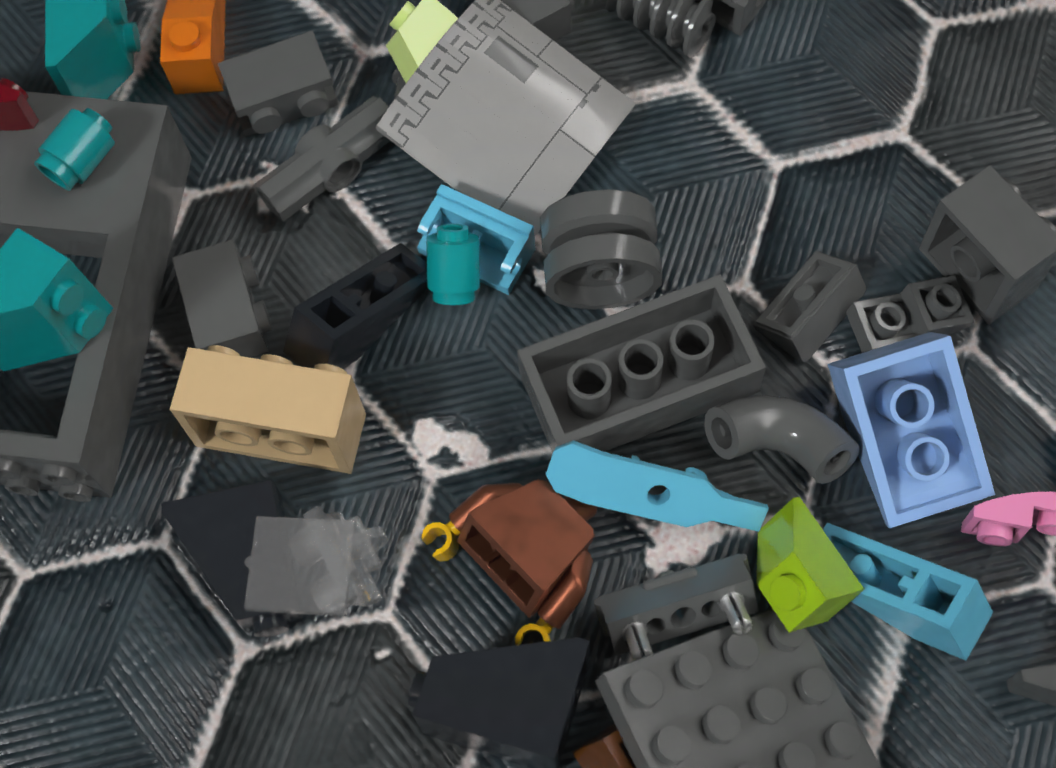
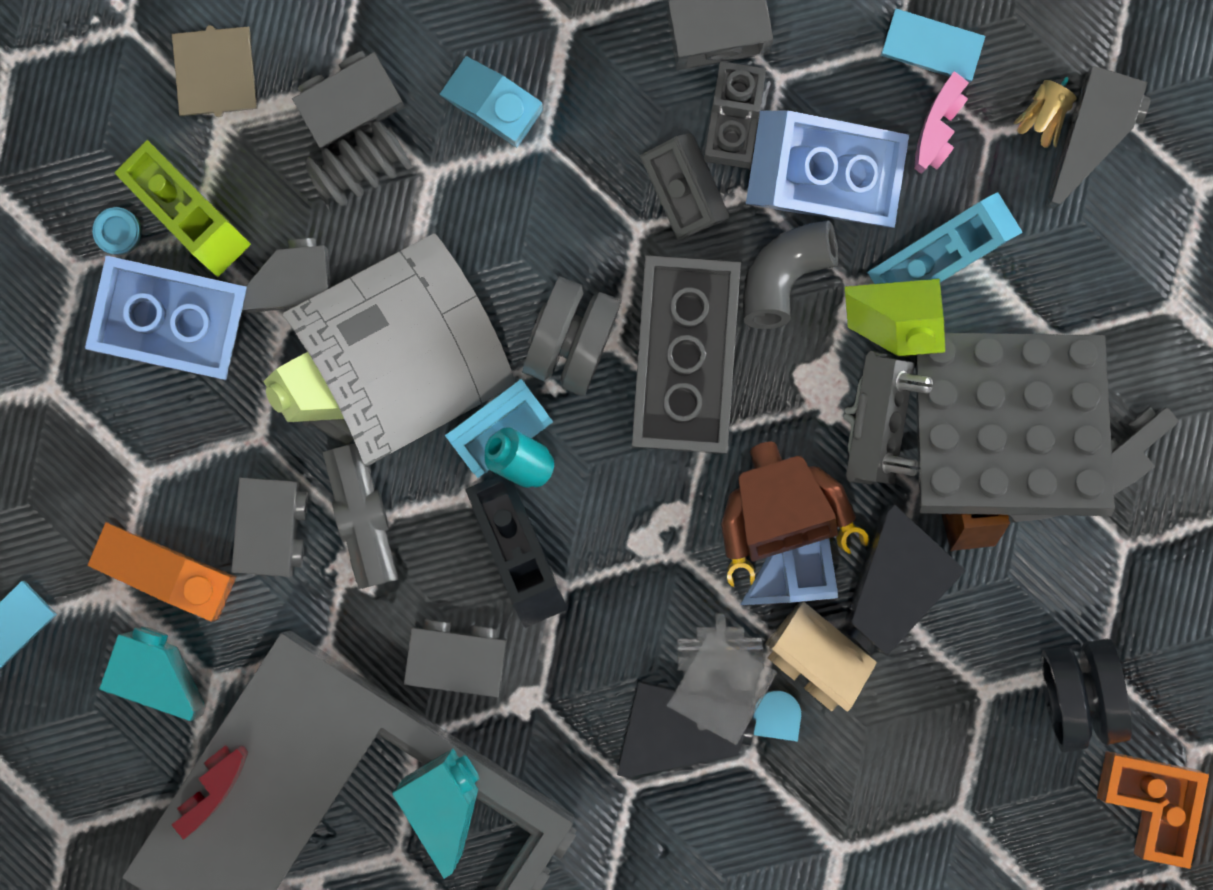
camera: 65 degrees left, 20 degrees up
(75, 148) = (298, 724): teal brick -> none
(269, 408) = (579, 658): tan brick -> none
(302, 654) = (778, 716): none -> medium azure tile
(377, 649) = (822, 655): none -> tan slope
(467, 602) = (795, 576): none -> light blue slope
(624, 486) = (787, 398): medium azure piece -> none
(790, 101) = (492, 100): none -> medium azure slope

